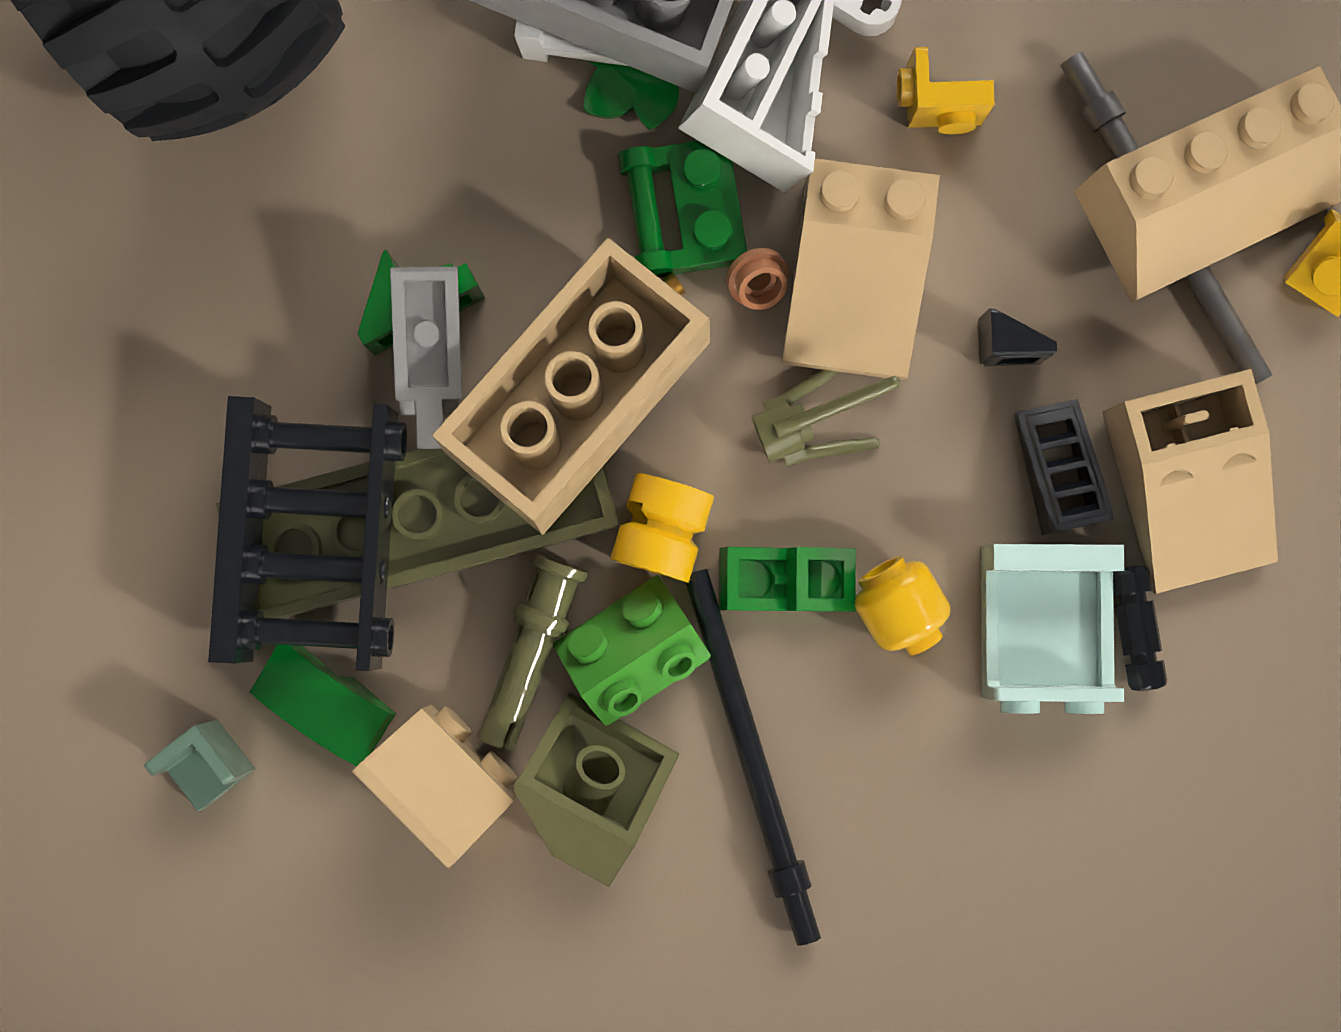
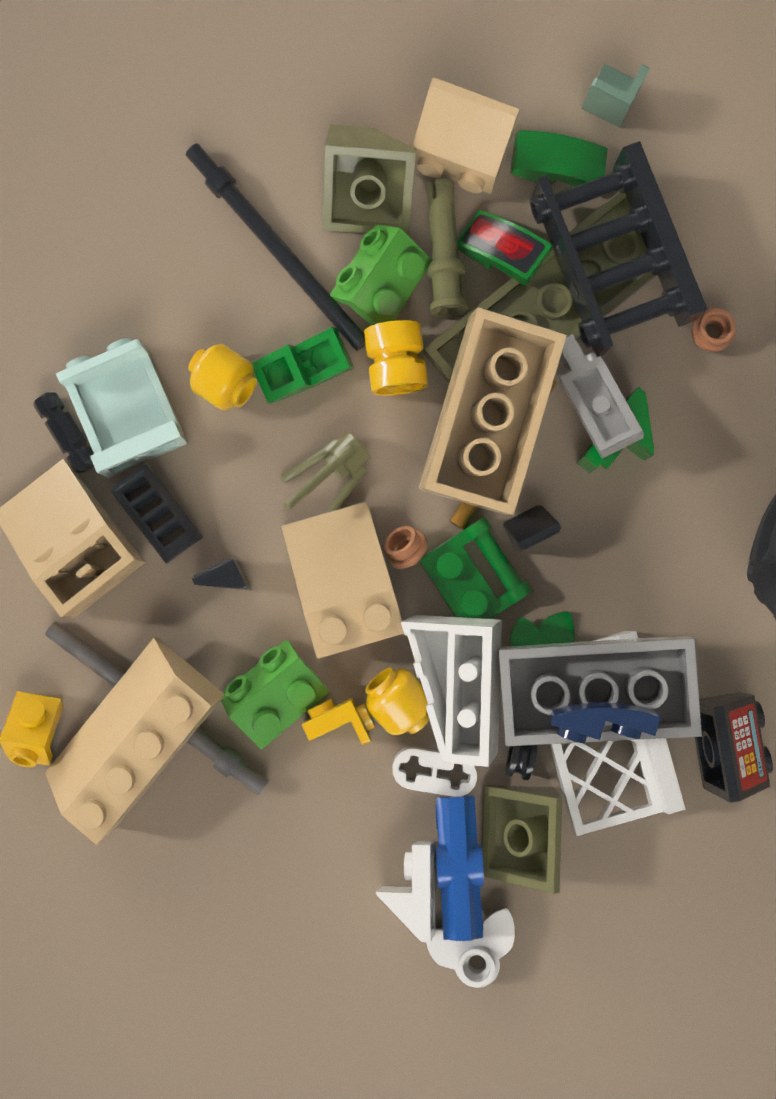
camera: 150 degrees right, 0 degrees up
(210, 376) = (725, 325): none -> nougat plate
(451, 618) = (504, 245): none -> slope
(581, 229) = (531, 527): none -> black slope
(857, 88) = (397, 701): none -> yellow head
(1011, 170) = (272, 694): none -> bright green bracket

